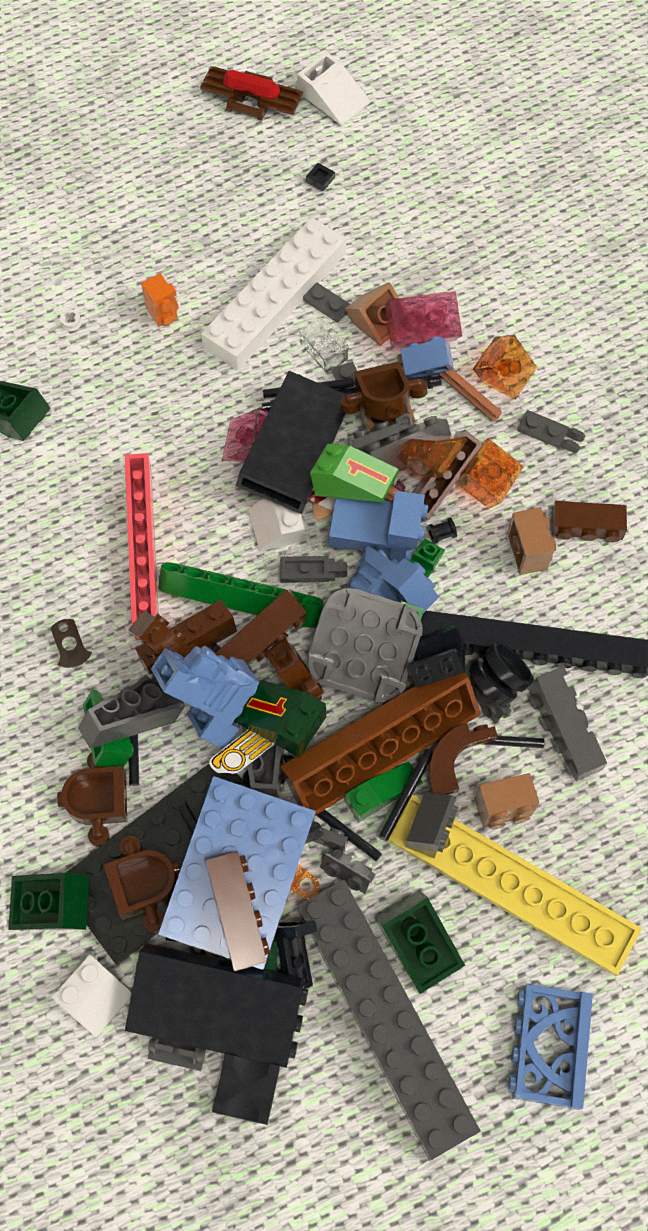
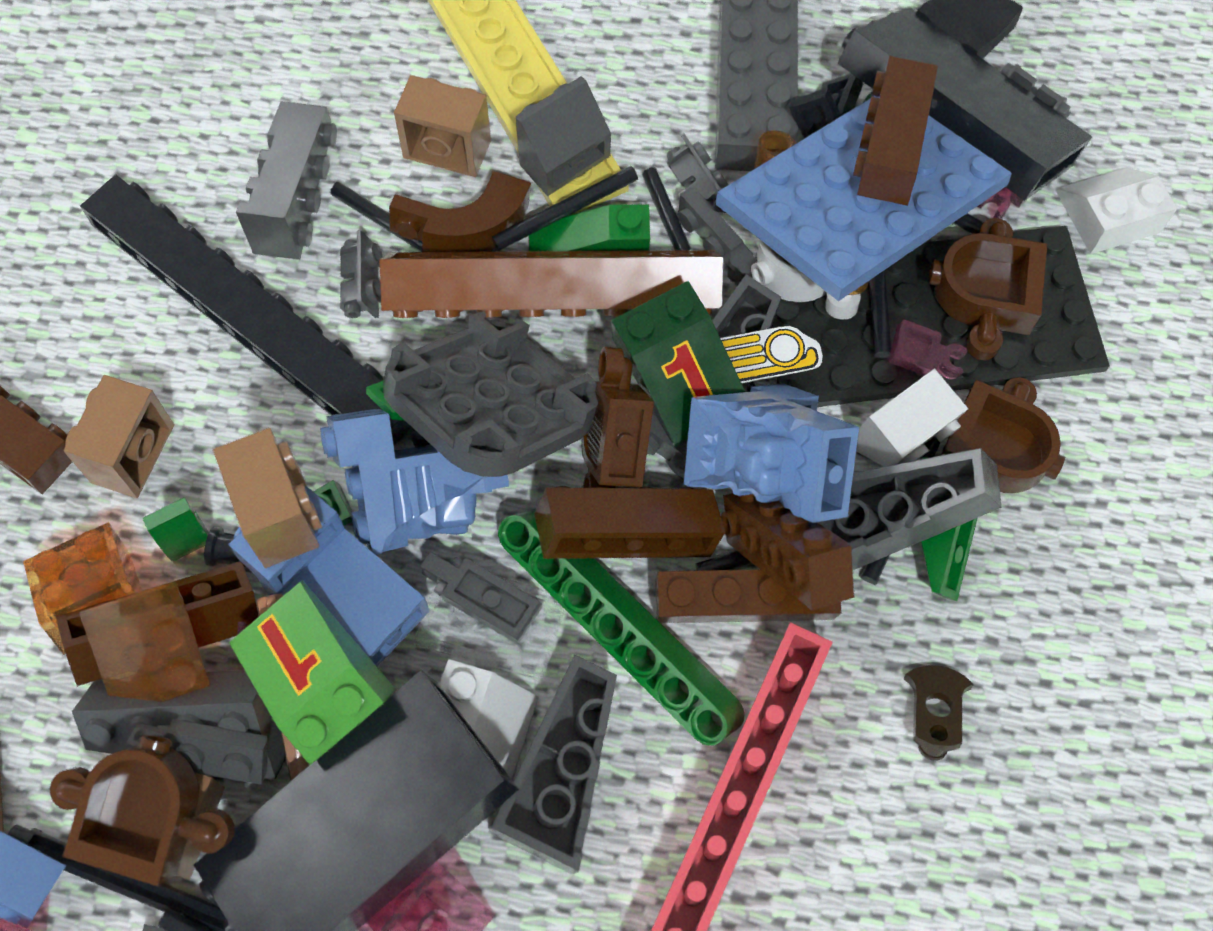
camera: 150 degrees left, 0 degrees up
(49, 902) = (1133, 327): dark green slope -> none
(149, 766) = (910, 421): none -> white slope
(162, 817) = (921, 351): none -> clear pink plate
(228, 519) = (561, 770): none -> dark grey wedge
(414, 506) = (269, 497): none -> medium nougat brick
(420, 941) = (664, 60): dark green slope -> none
(438, 656) = (393, 312): black panel -> none
(466, 519) = (176, 529): none -> green slope
(501, 674) = (324, 269): black wheel -> none

